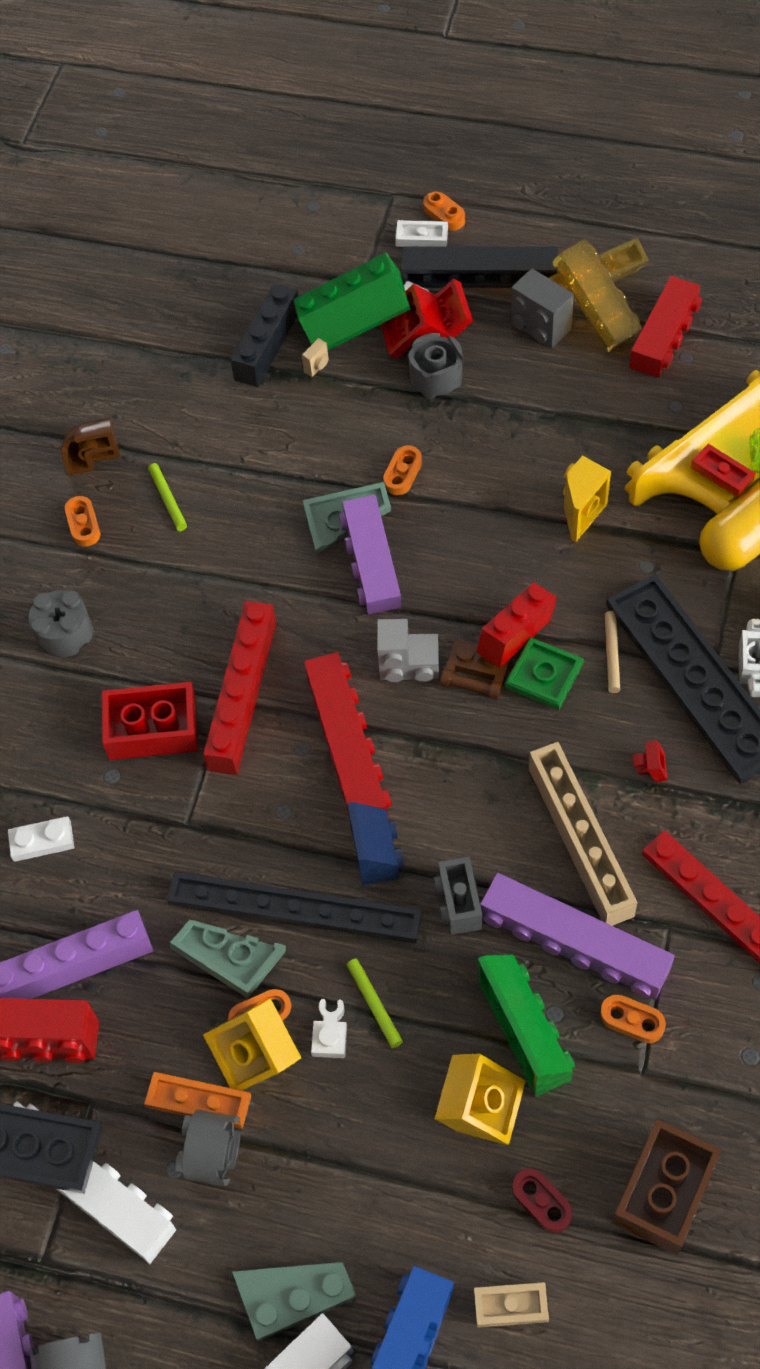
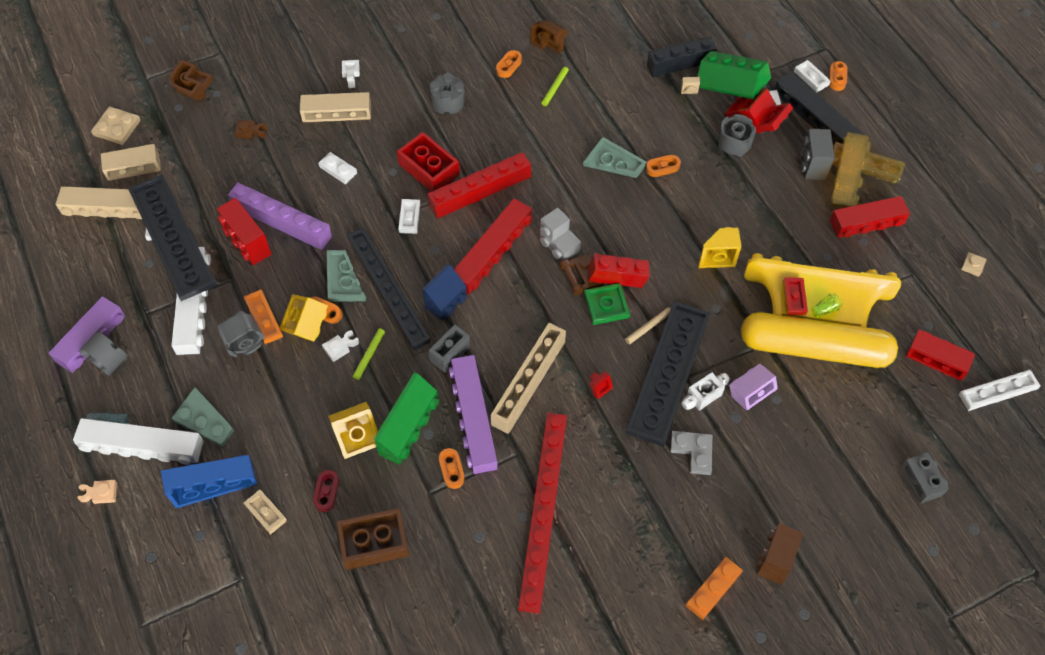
camera: 45 degrees right, 0 degrees up
(207, 803) = (409, 216): none -> white plate
(371, 555) = (599, 184): medium lavender brick -> none

